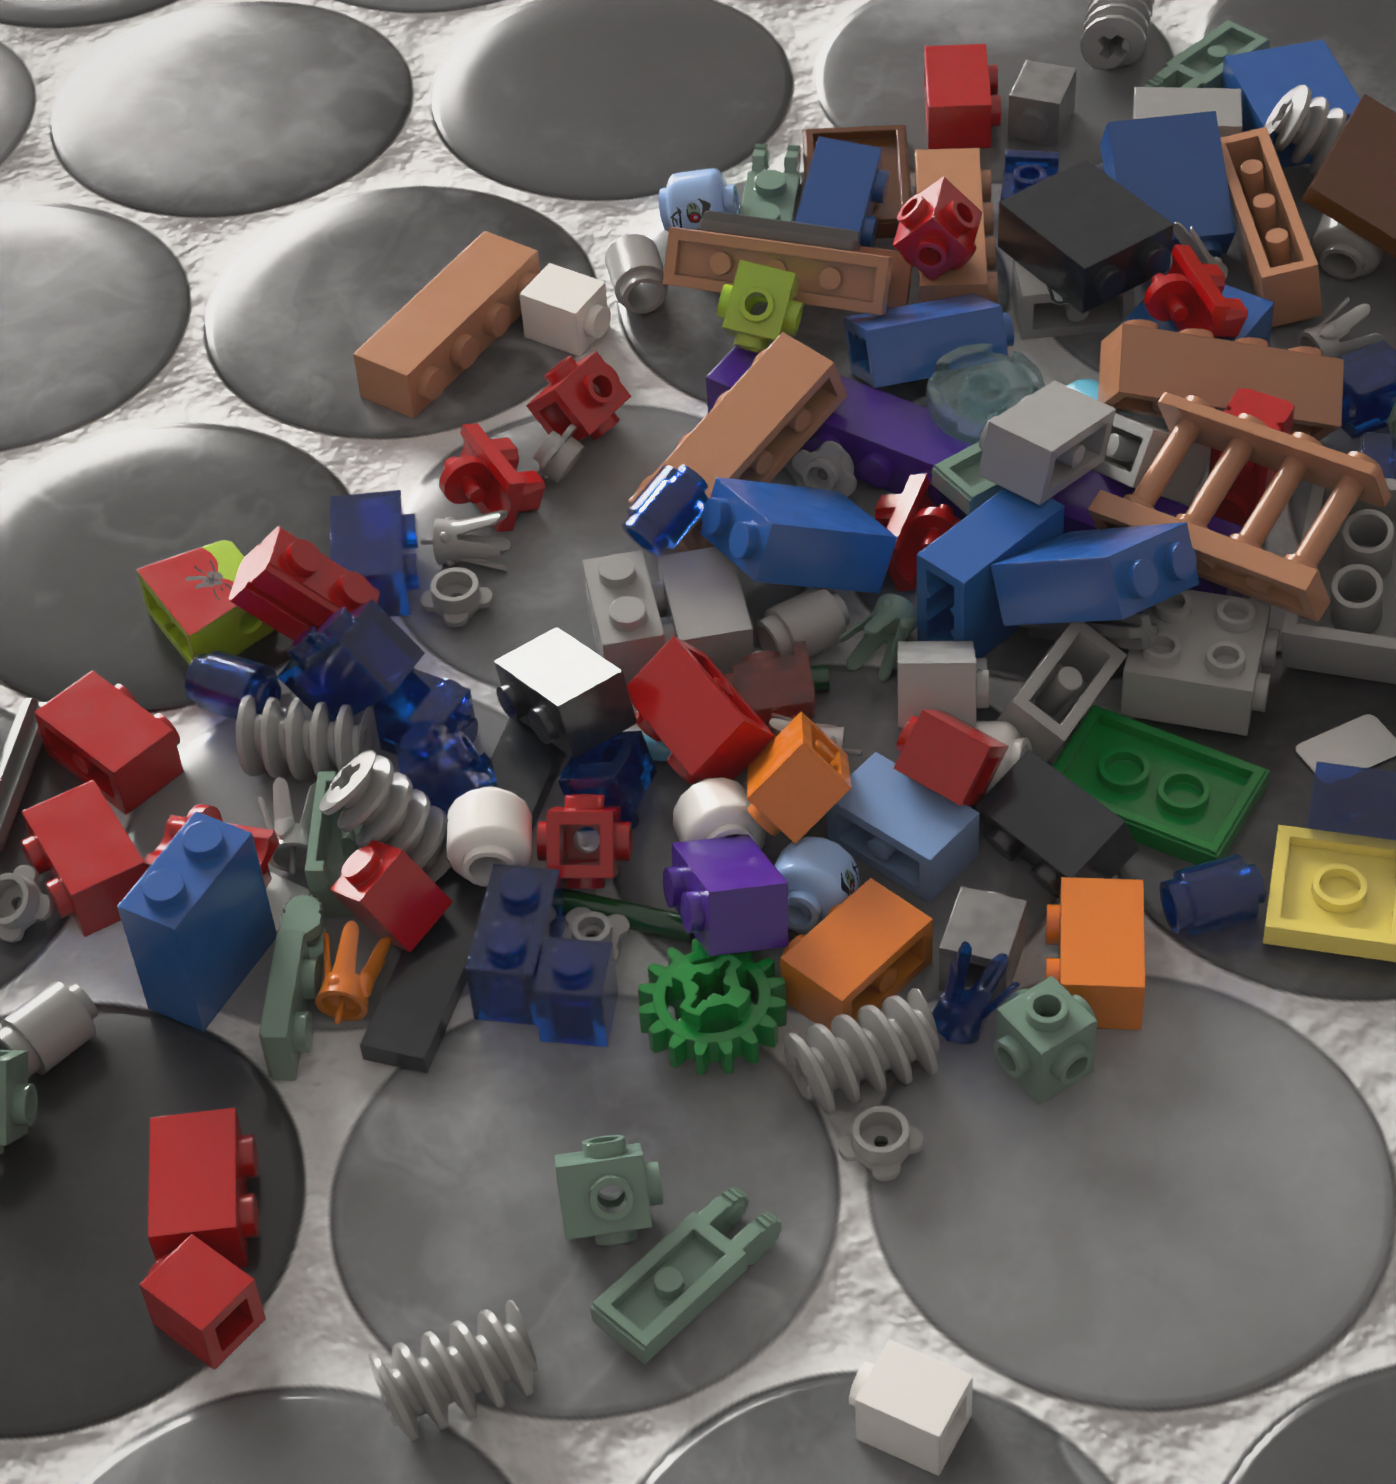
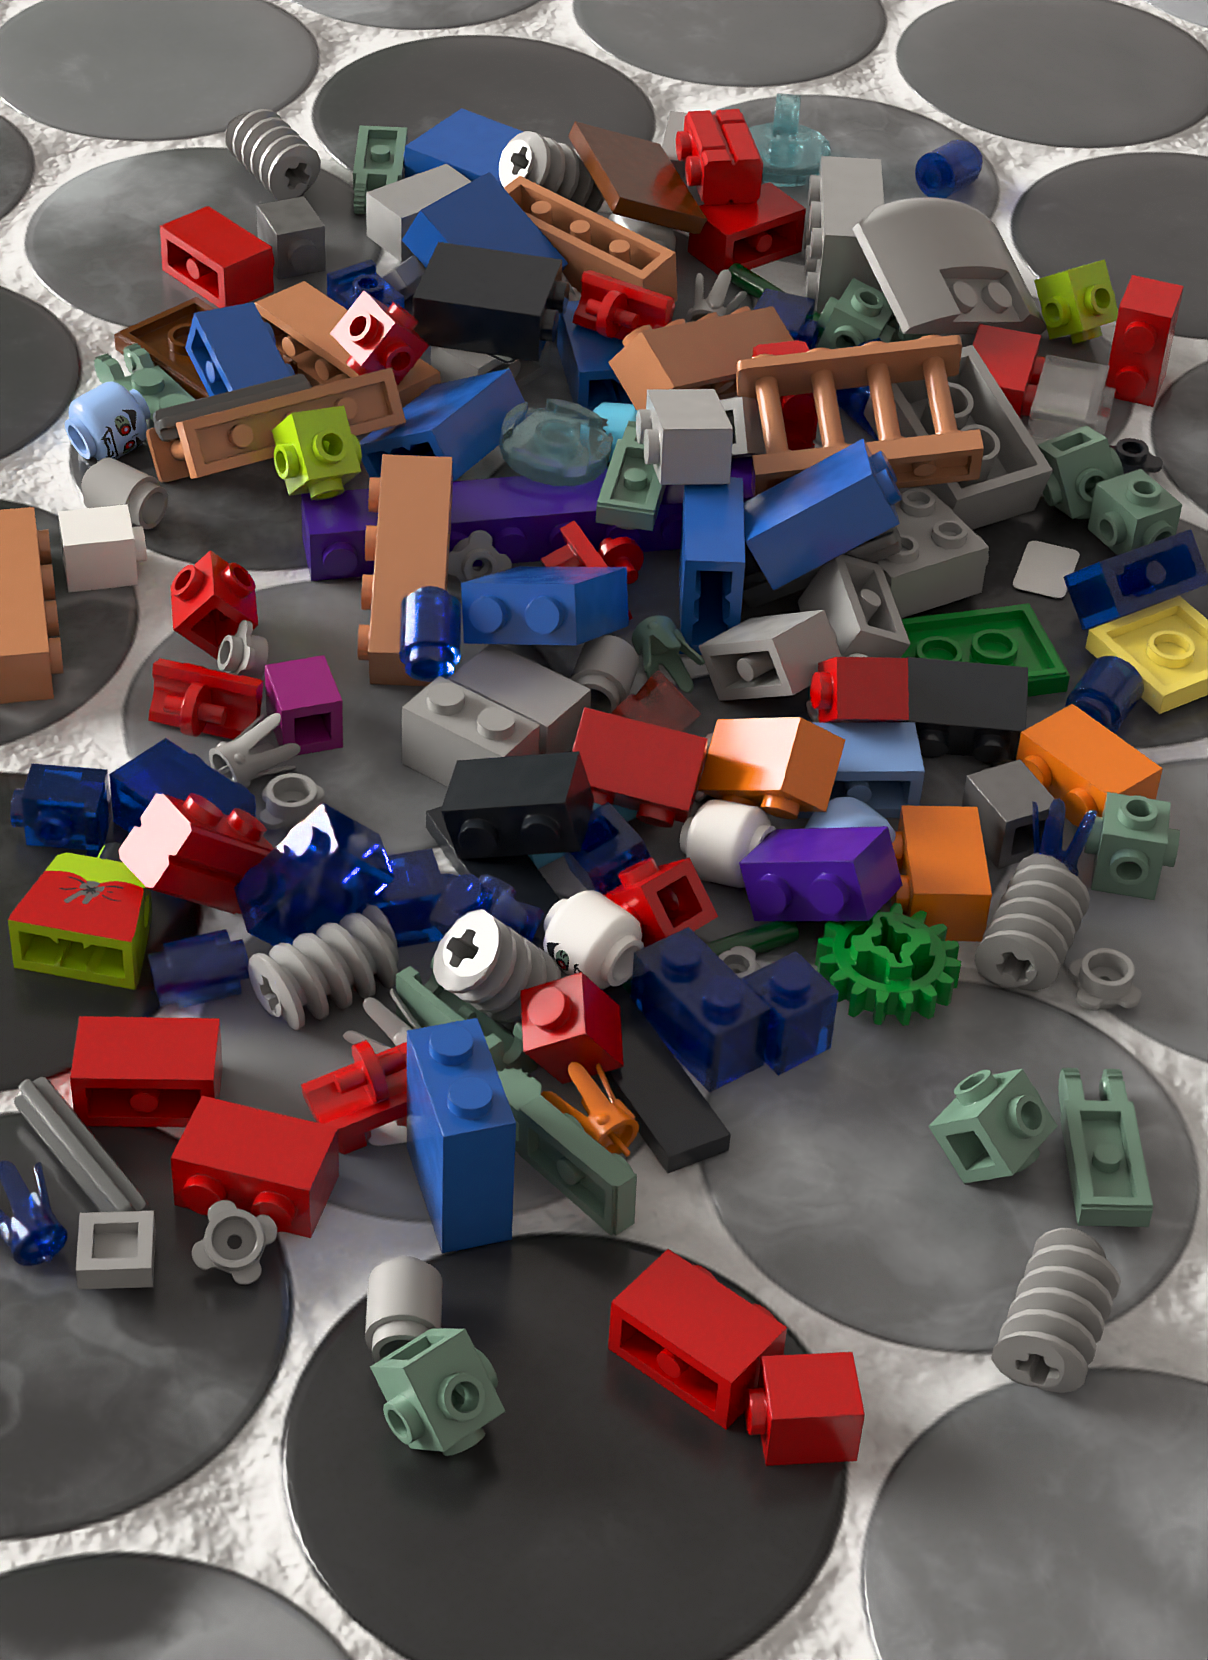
camera: 50 degrees left, 5 degrees down
(294, 502) = (64, 807): none -> clear blue brick
(550, 521) = (307, 704): none -> magenta brick

